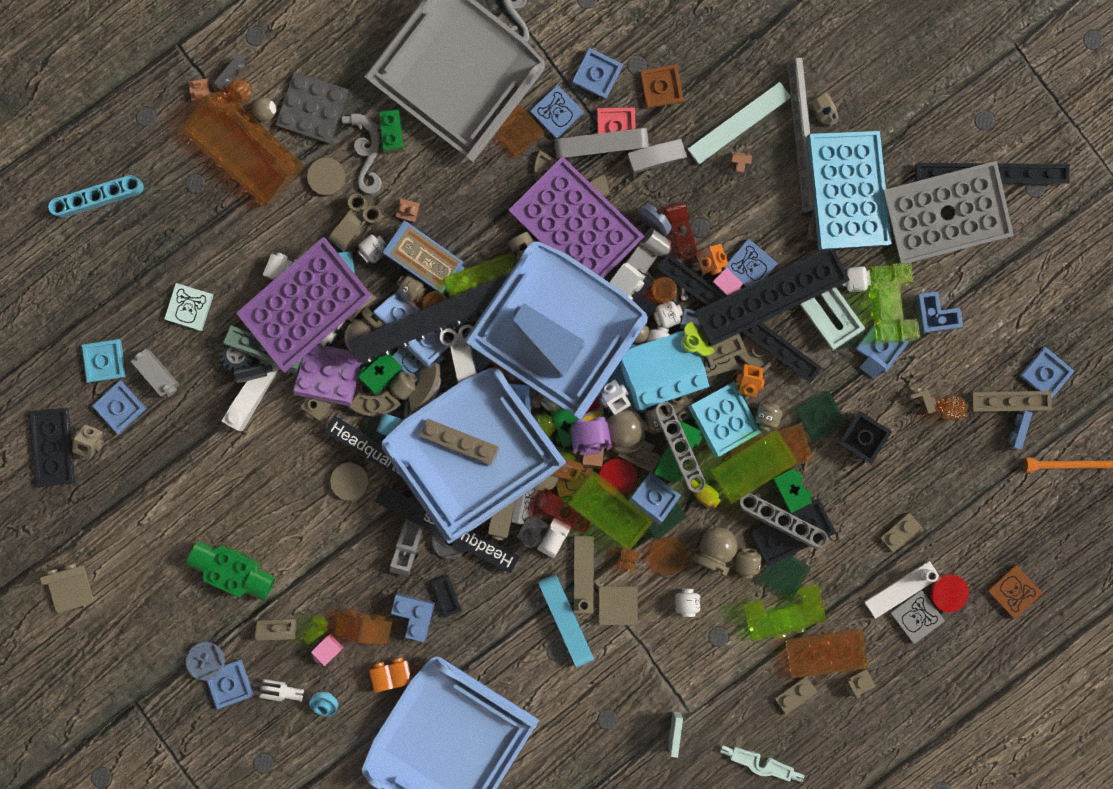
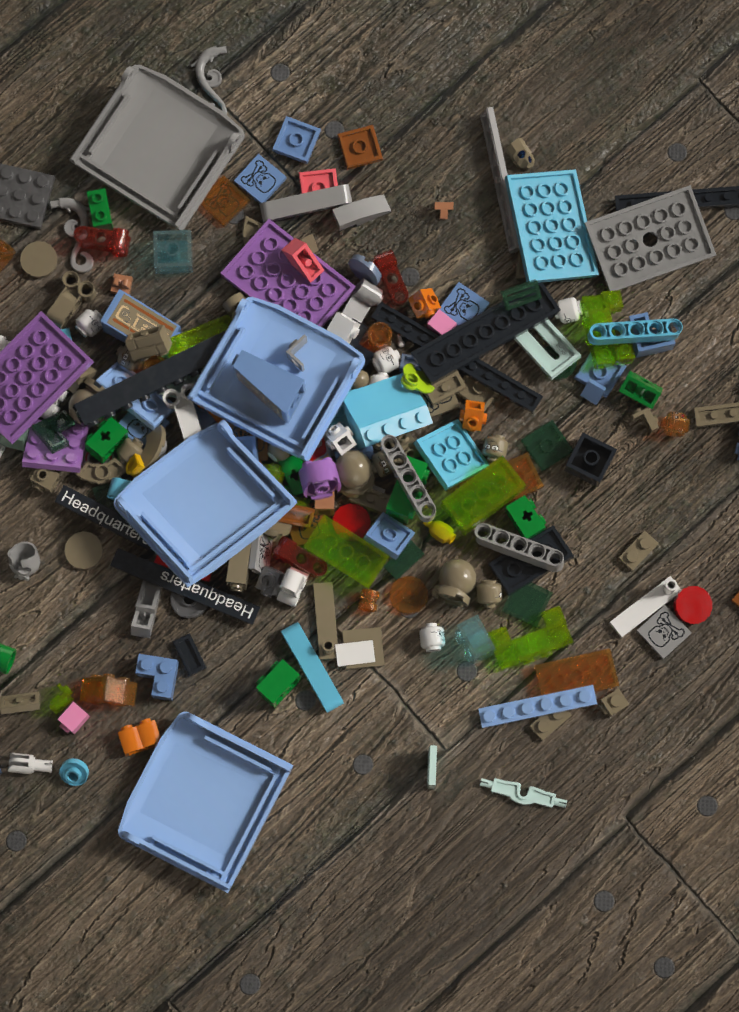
camera: 10 degrees left, 10 degrees down
(289, 487) = (23, 560): none -> light grey helmet
(324, 359) = (50, 431): none -> tile
(405, 166) = (116, 240): none -> clear red piece
(406, 403) = (134, 465): none -> yellow tile
(429, 280) = (148, 343): none -> dark tan brick
(459, 442) = (190, 493): dark tan plate -> none
(462, 182) = (173, 251): none -> clear light blue brick
(531, 636) = (277, 683): none -> green brick
(576, 300) = (294, 347): none -> light grey bracket
(593, 204) = (302, 259): none -> coral slope
(609, 610) = (355, 653): none -> white sticker
(730, 611) = (474, 640): none -> clear light blue brick
(739, 123) = (438, 175): light aqua tile -> none
(785, 682) = (537, 706): none -> light blue plate
(810, 259) = (504, 293): none -> clear green tile
(922, 369) = (641, 389): none -> green brick
(933, 313) = (642, 326): none -> medium azure beam

